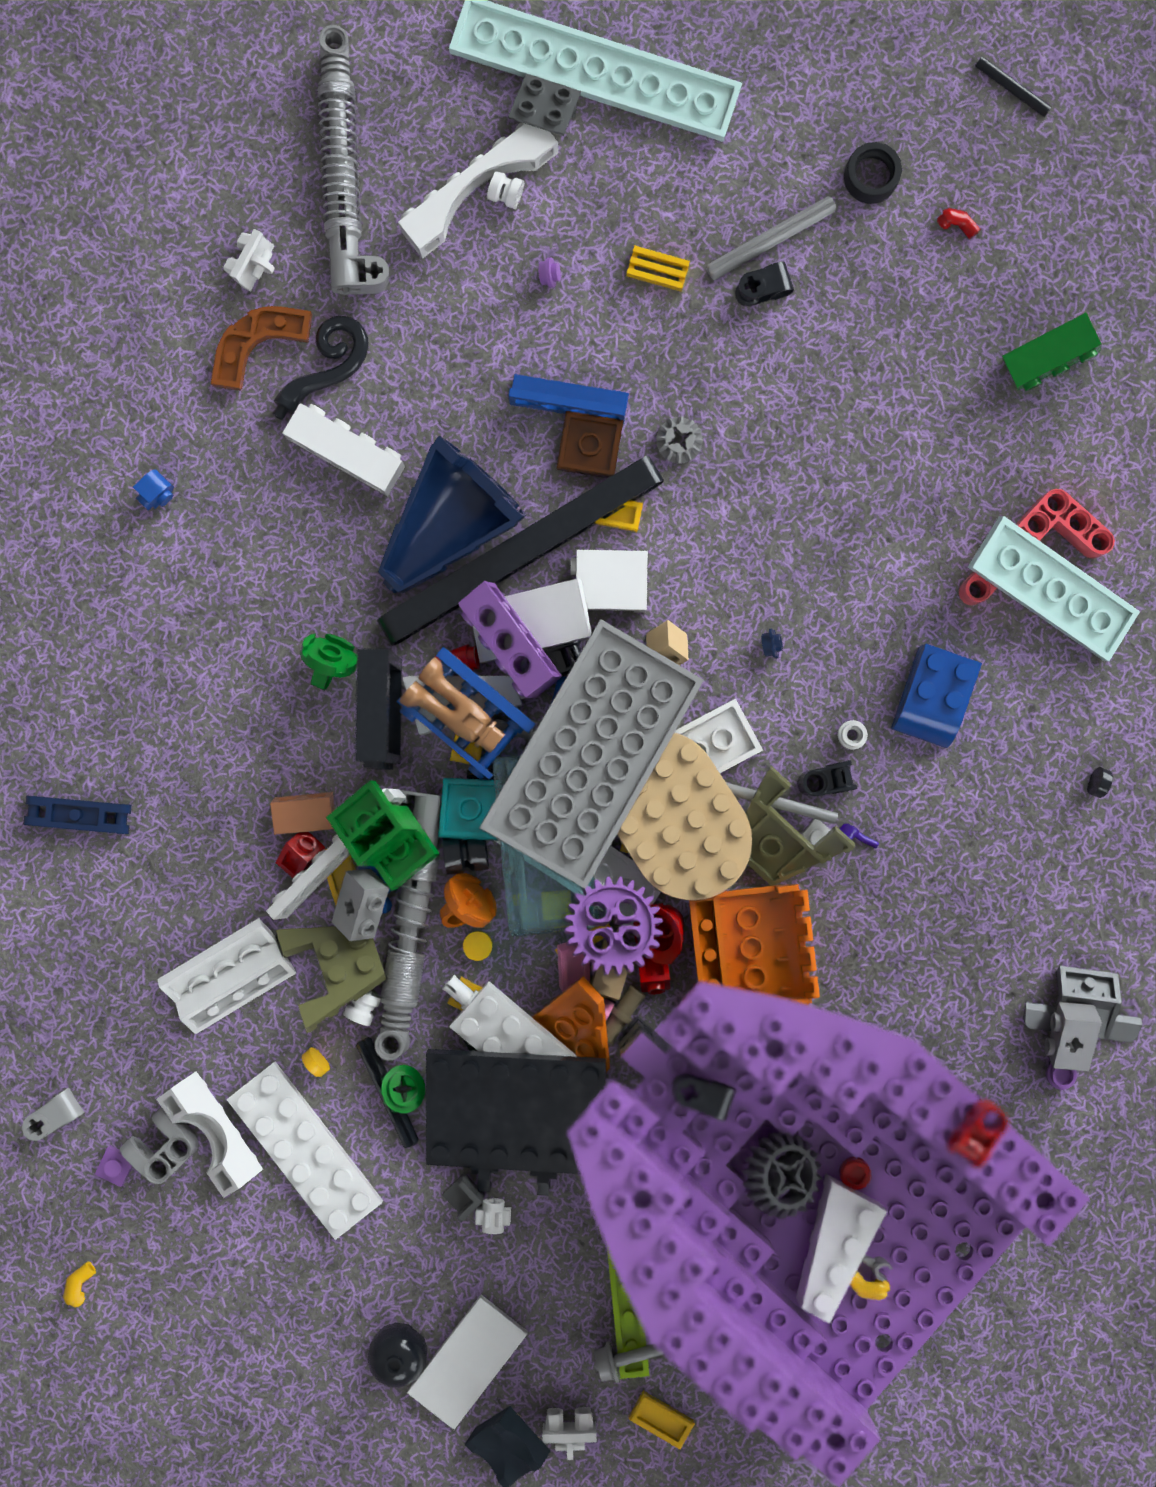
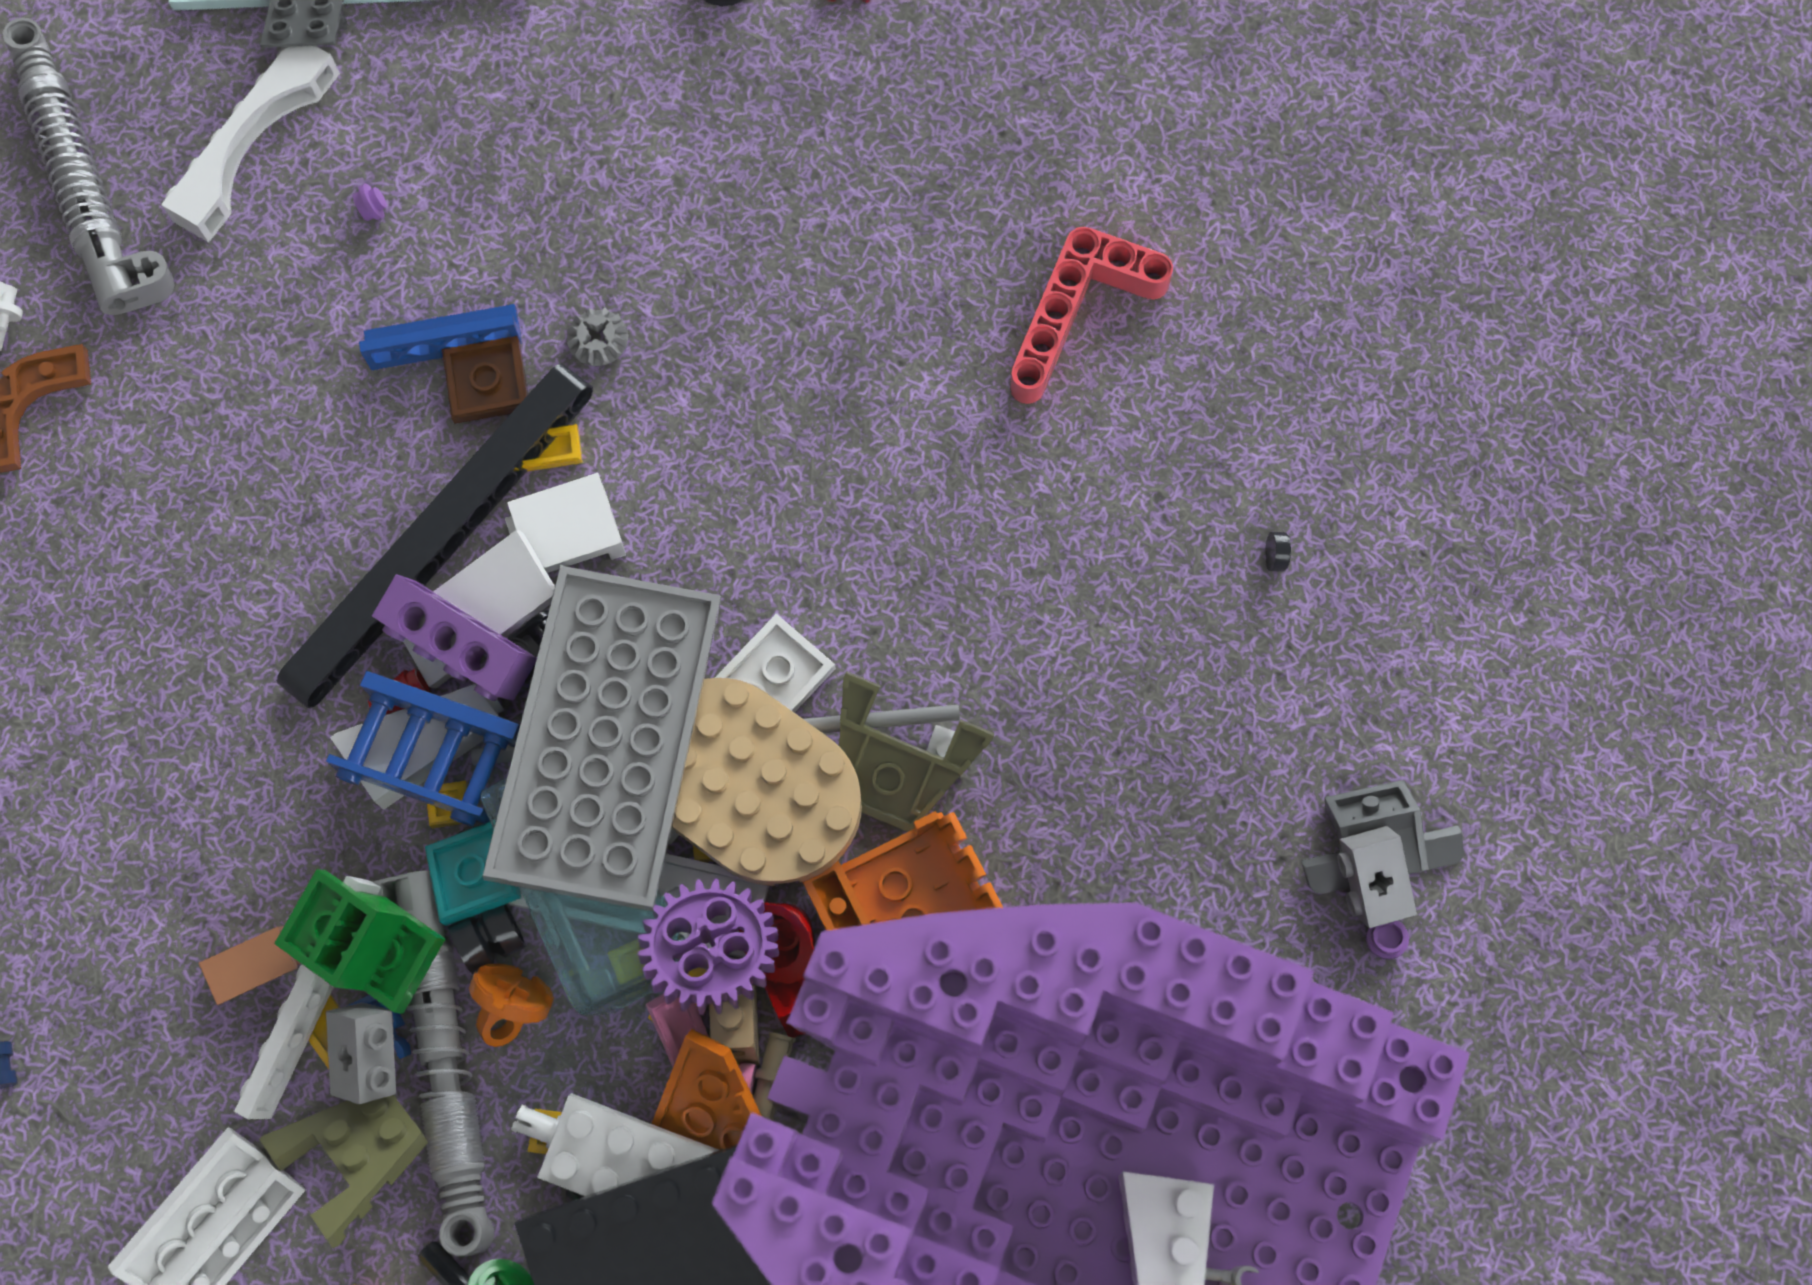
camera: 20 degrees left, 15 degrees down
(298, 853) = (256, 1019): red bracket -> none
(299, 388) = (93, 440): black plant -> none
(328, 658) = (224, 753): green tile -> none
(344, 449) = (172, 489): white brick -> none
(361, 1009) = (409, 1195): white wheel -> none
(377, 708) = (304, 793): black window -> none
(445, 518) = (323, 525): dark blue cone -> none
(466, 720) = (425, 750): medium nougat piece -> none
(477, 945) = (545, 1057): yellow tile -> none
(505, 189) = (286, 130): white wheel -> none
(660, 257) = (503, 149): yellow tile -> none
(669, 642) = (667, 570): tan panel -> none
(708, 1096) = (904, 1100): black piece -> none
(769, 284) = (640, 126): black piece -> none
(771, 238) = (628, 78): light grey axle -> none
(772, 643) = (798, 532): dark blue plate -> none
(774, 1177) = (1039, 1195): dark grey gear -> none
(832, 779) = (938, 667): black piece -> none
(852, 832) = (993, 726): dark purple hand -> none
(855, 1173) = (1156, 1157): red tile -> none
(861, 734) = (947, 596): white plate -> none
(936, 695) = (1029, 520): blue brick -> none
(978, 1136) = (1262, 988): red piece -> none
(1053, 353) = (1011, 83): green wedge -> none
(1053, 588) = (1120, 341): light aqua plate -> none

